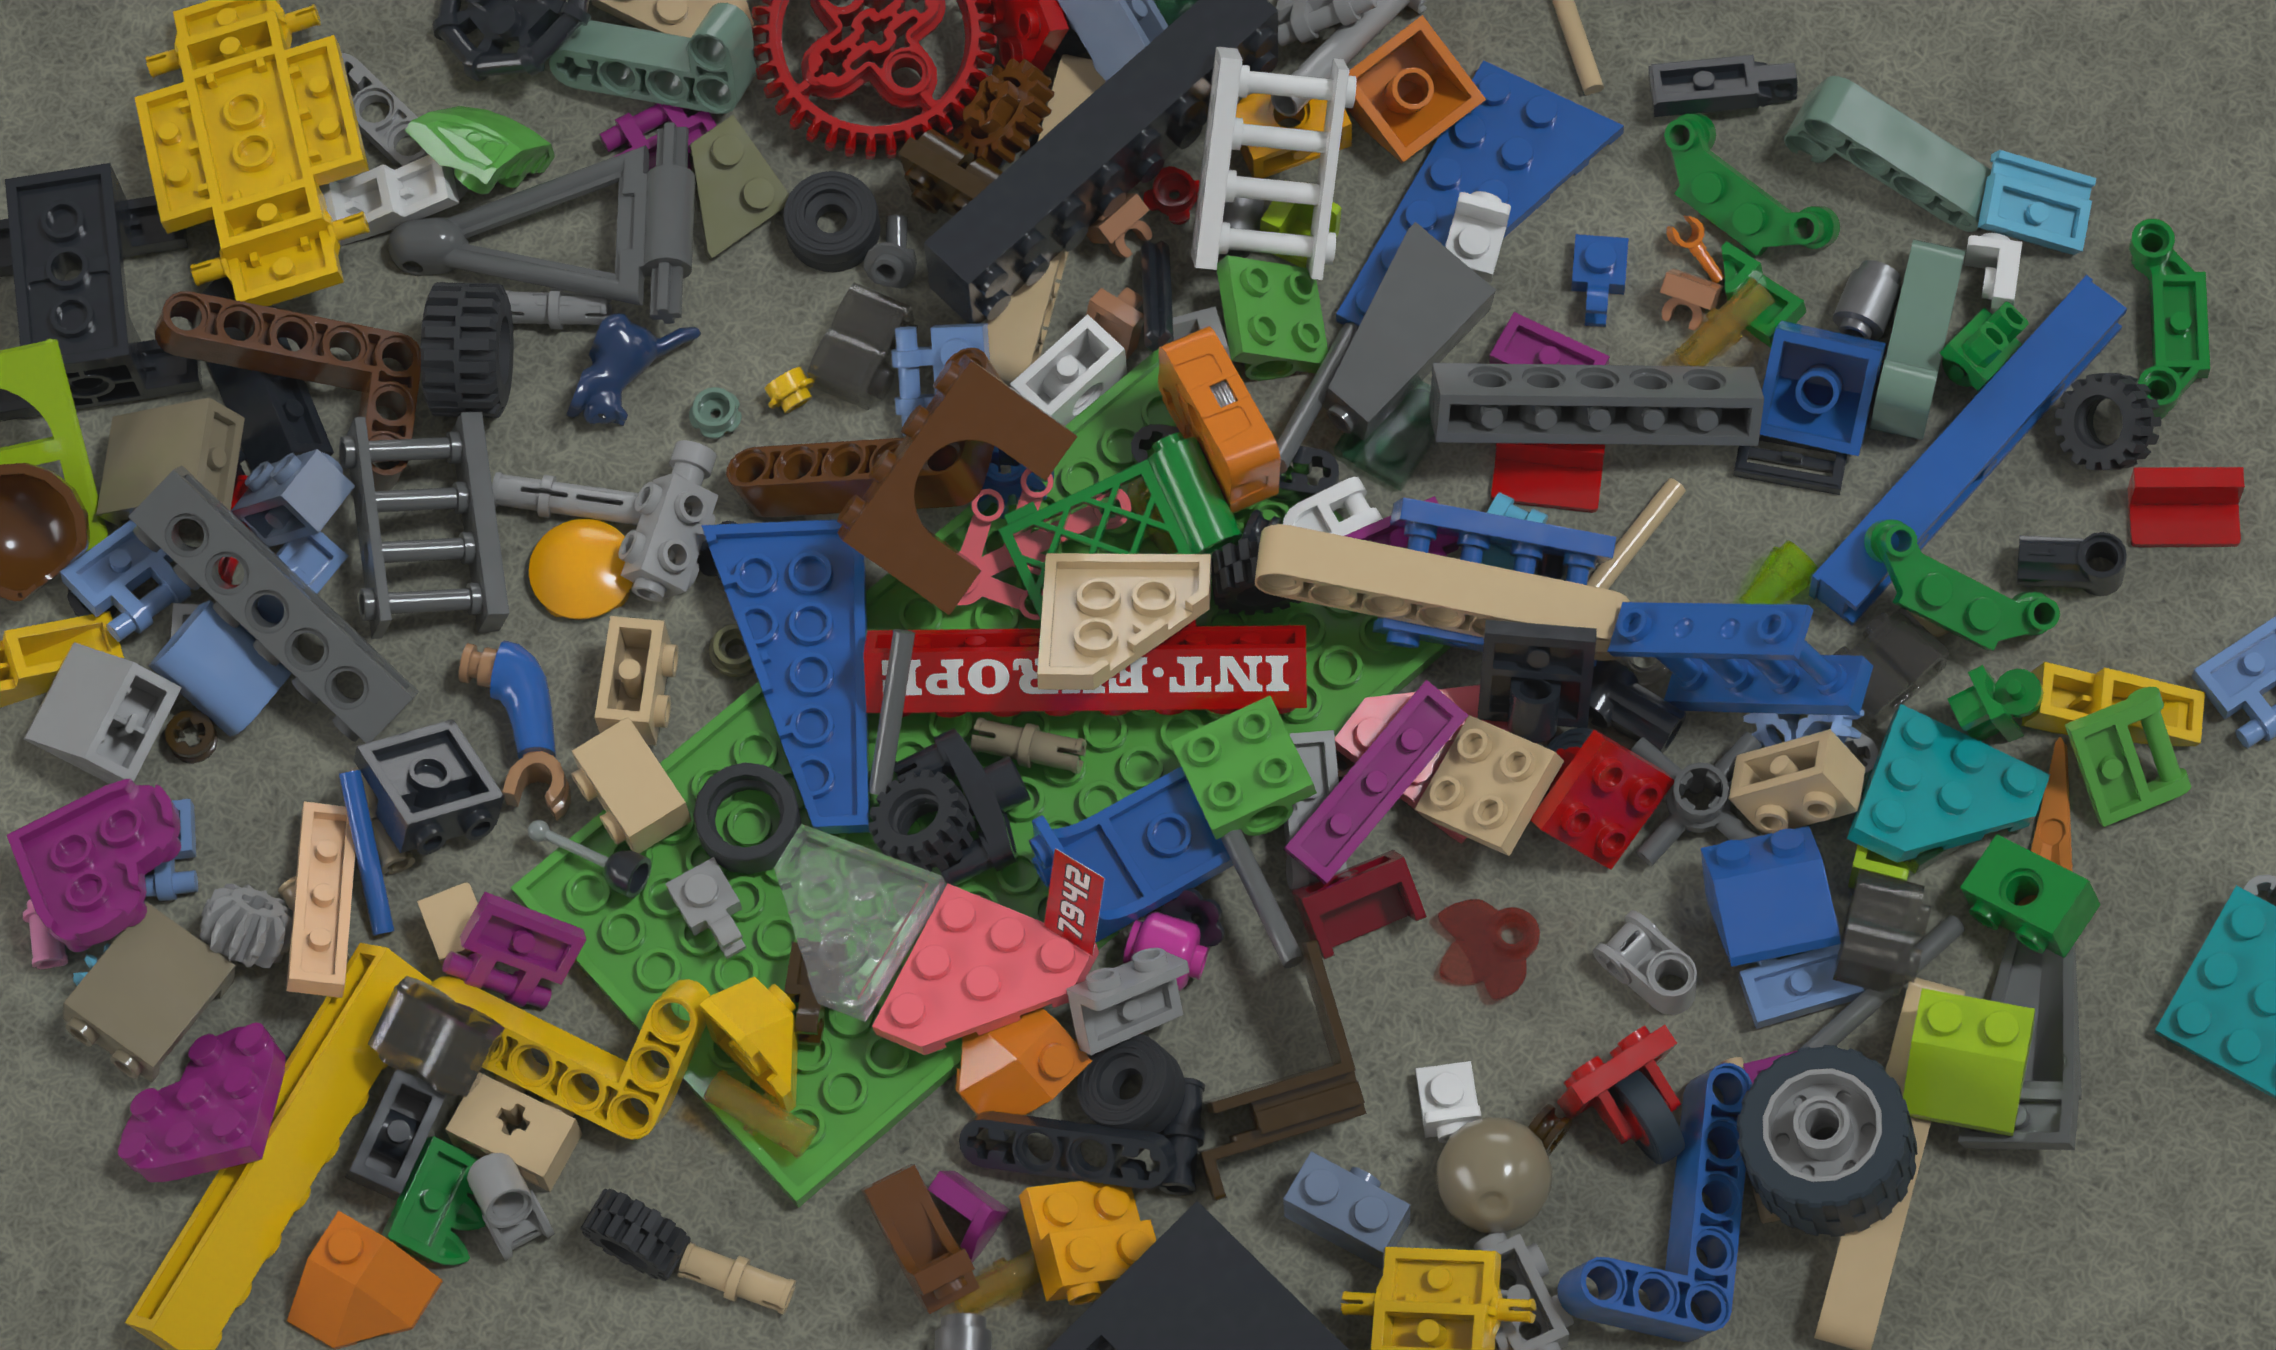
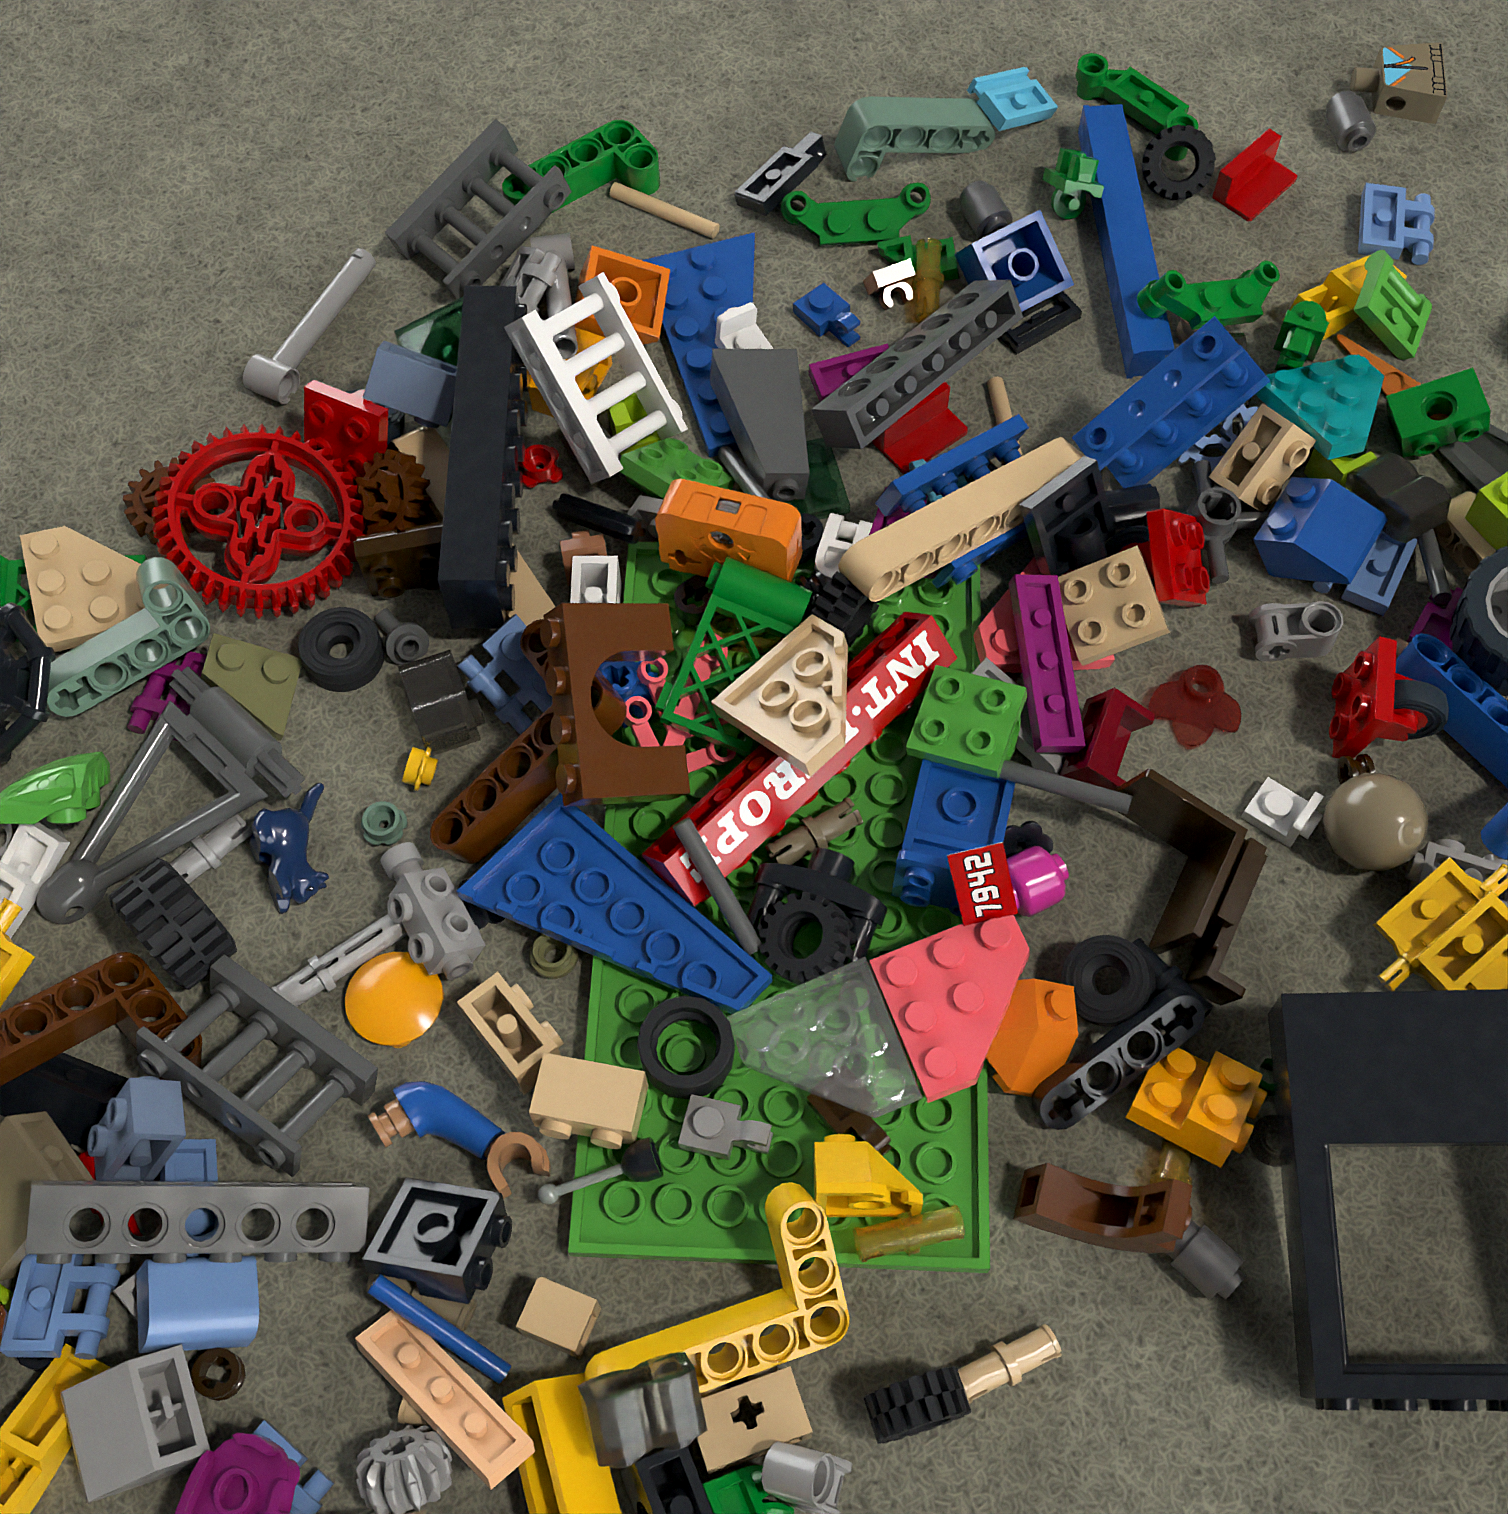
camera: 50 degrees left, 5 degrees down
(518, 938) = (617, 1280): magenta plate -> none
(974, 1204) = (1098, 1153): magenta tile -> none
(1112, 229) = (531, 501): nougat tile -> none
(1126, 999) = (1059, 922): light grey bracket -> none
(1346, 1208) = (1314, 927): sand blue brick -> none
(1696, 247) = (856, 255): orange hand -> none
(1781, 576) = (1108, 374): clear neon green cone -> none
(1917, 339) = (1071, 223): sand green beam -> none
(2001, 260) = (1034, 142): white bracket -> none
(2064, 562) = (1241, 245): black piece -> none

